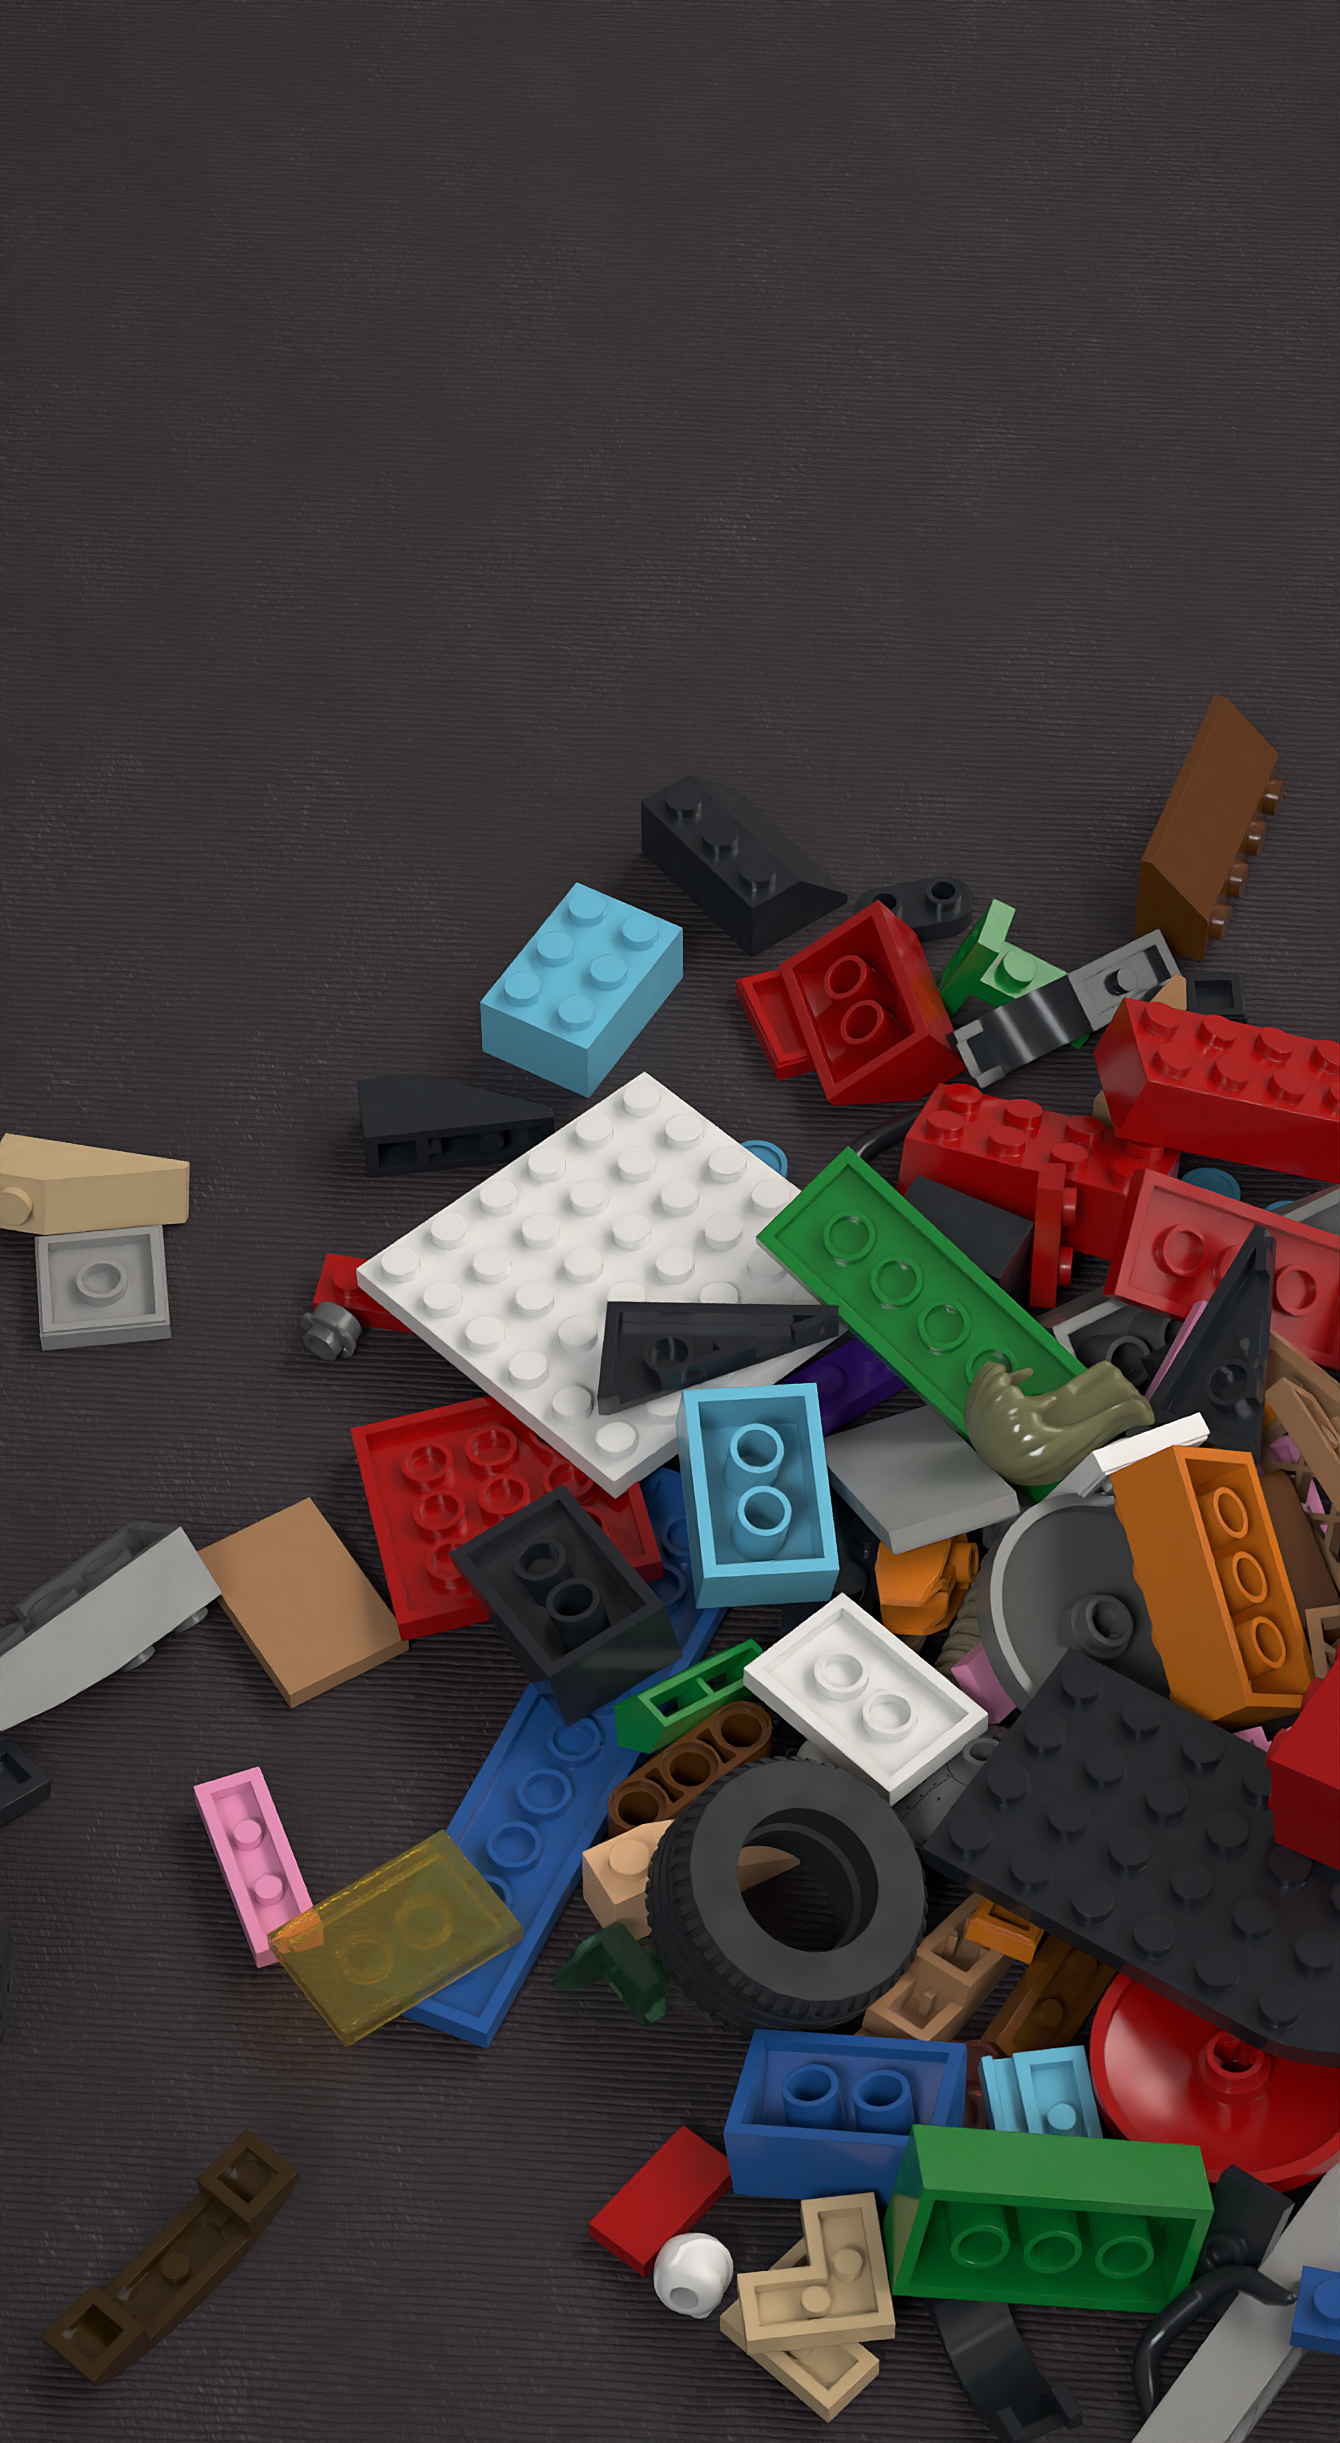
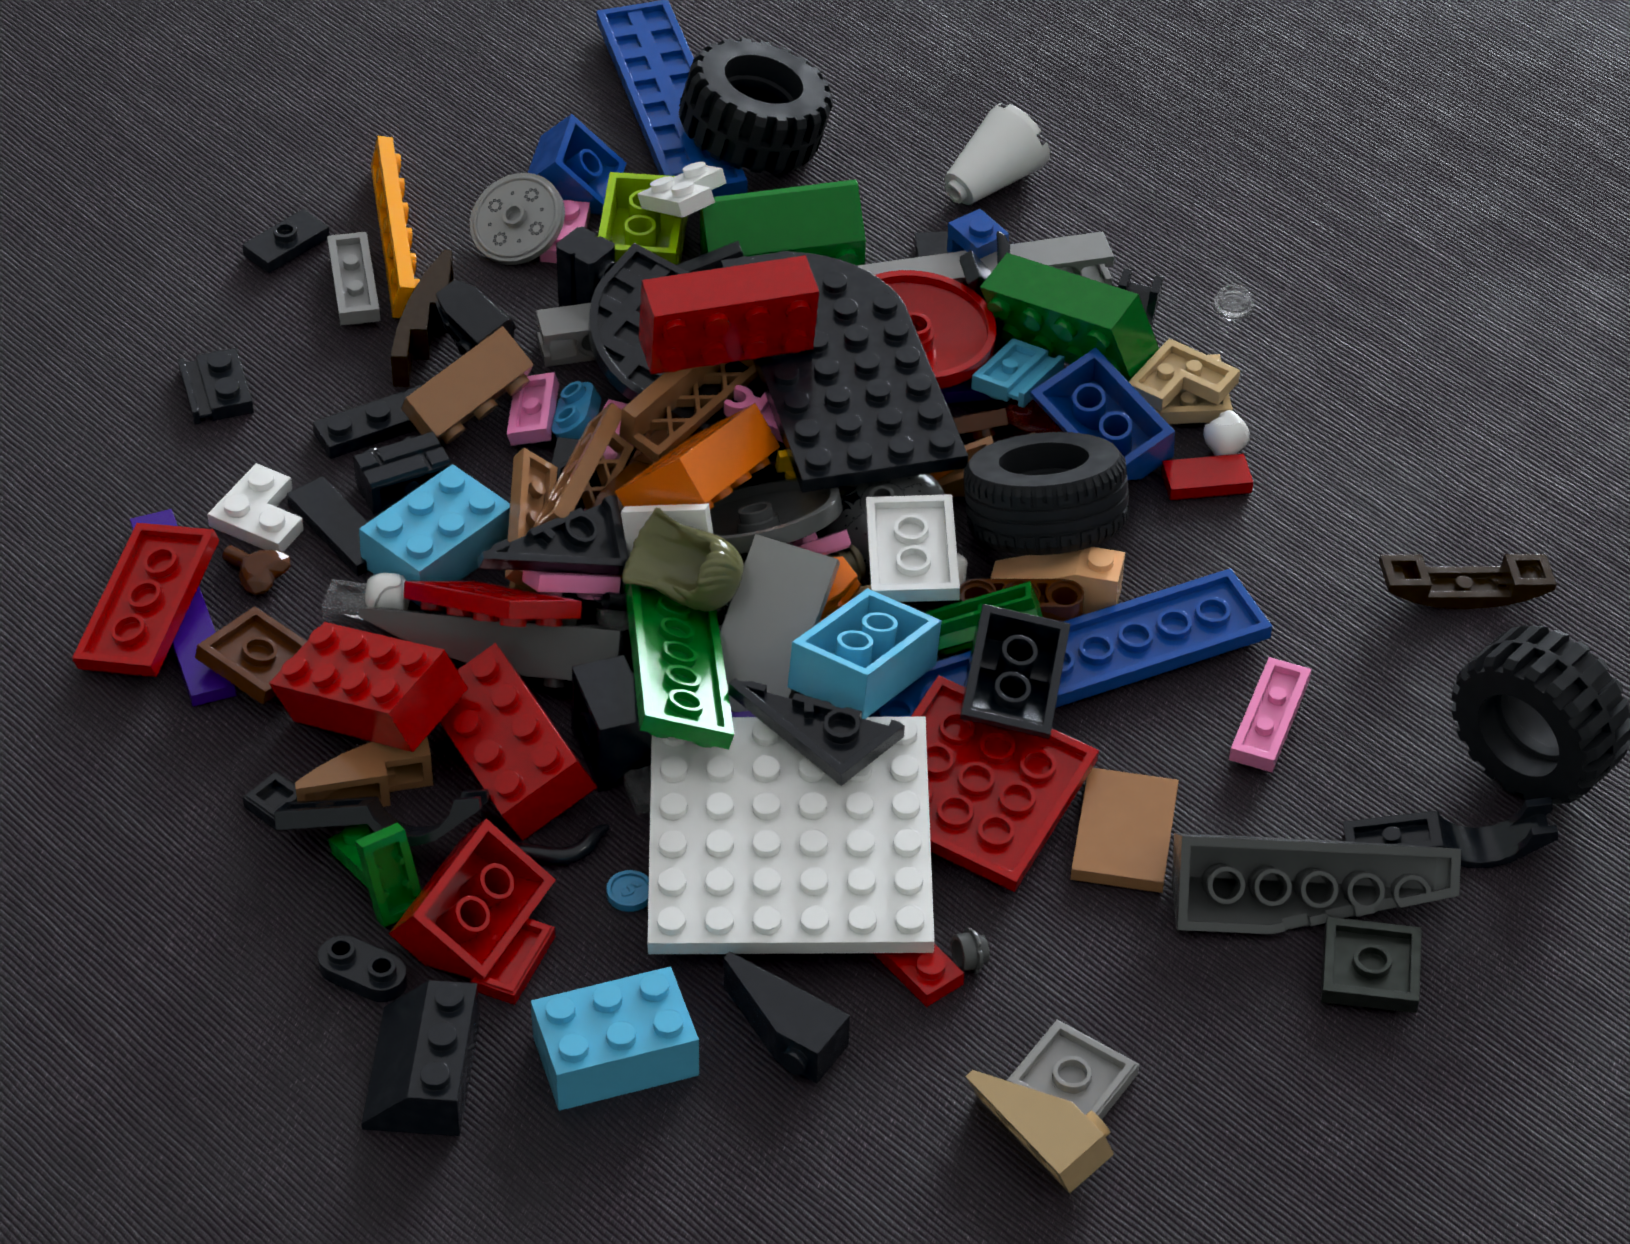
camera: 140 degrees left, 5 degrees down
(394, 1937) = (1239, 622): clear yellow tile -> none
(629, 1969) = (1139, 566): clear green plate -> none
(1053, 1210) = (551, 681): red plate -> none
(1208, 833) = (165, 869): reddish brown slope -> none

